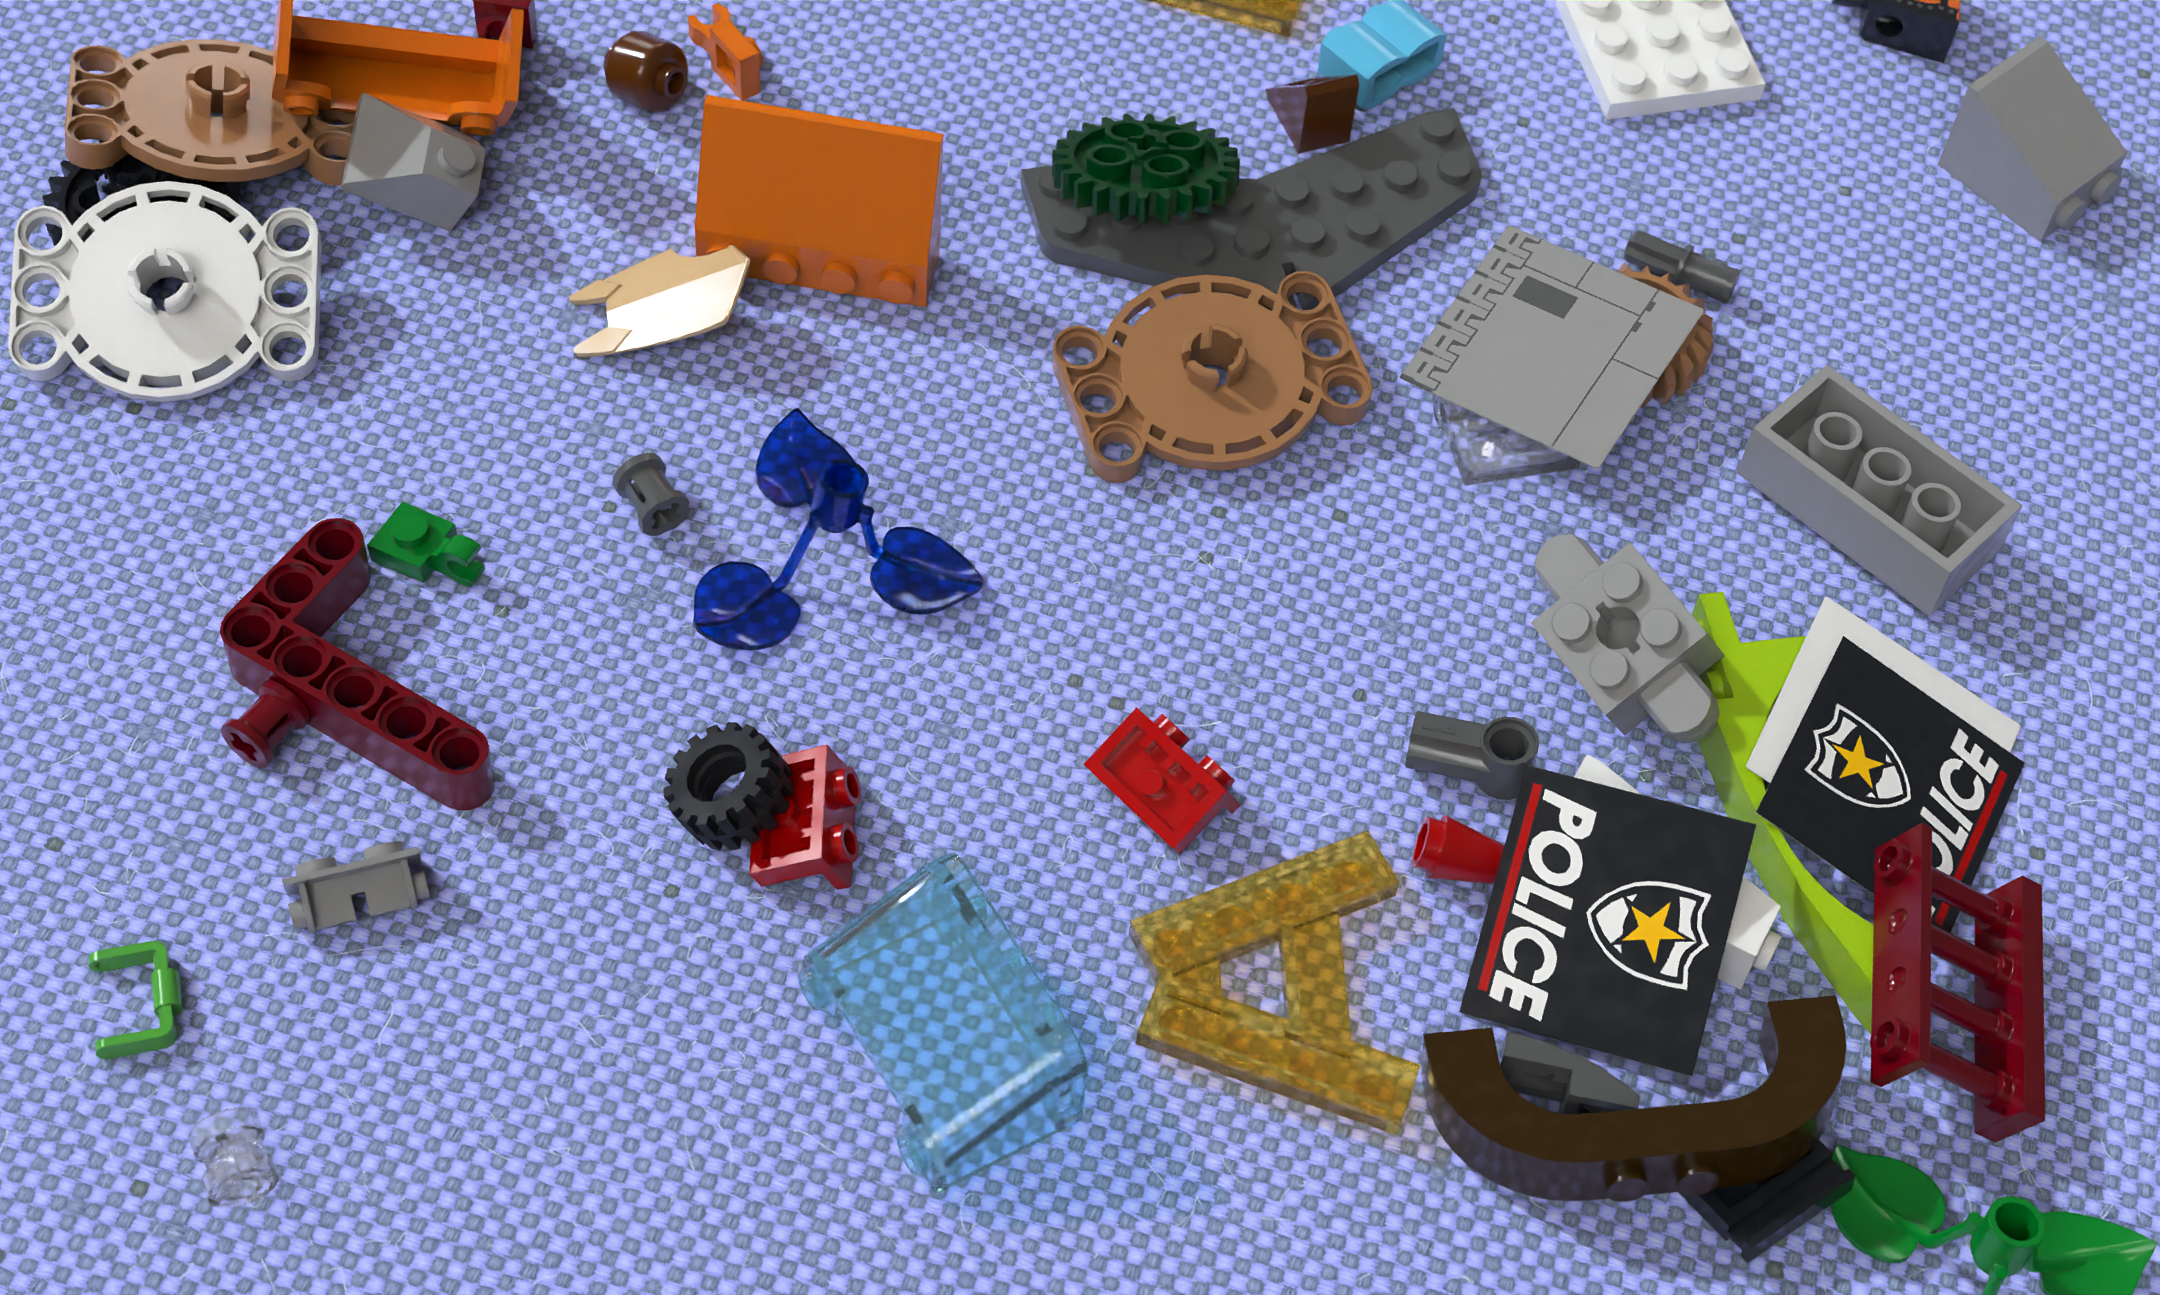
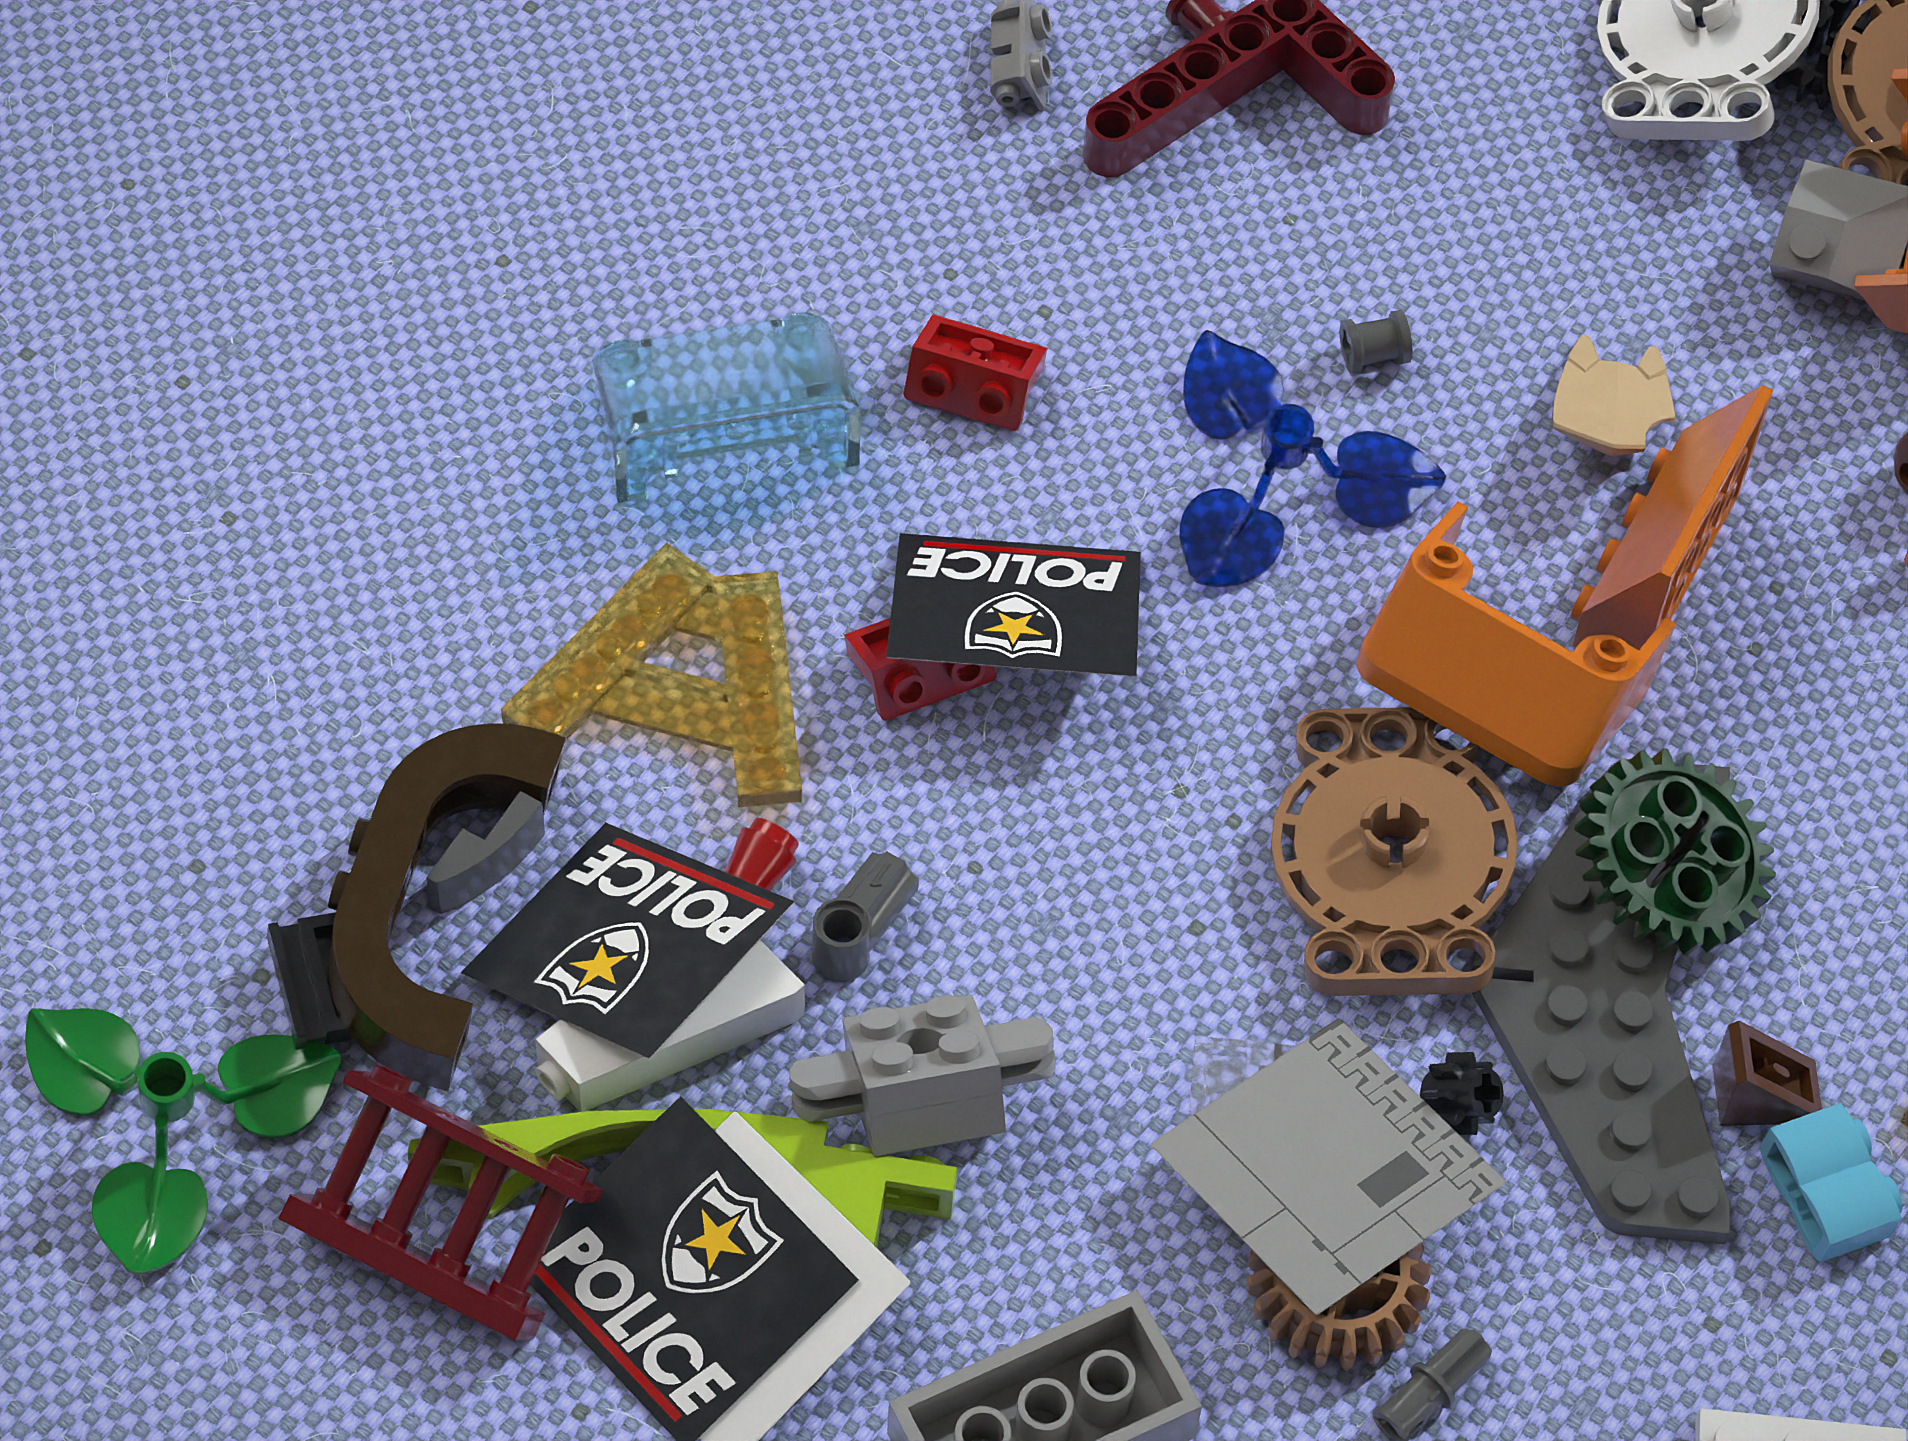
camera: 110 degrees right, 5 degrees up
(422, 542) = (1372, 165): green plate -> none
(746, 808) = (1018, 309): black tyre -> none
(1027, 342) = (1496, 676): none -> orange windscreen
(1090, 704) = (1015, 605): none -> black sticker
(1427, 282) = (1463, 1092): none -> black gear

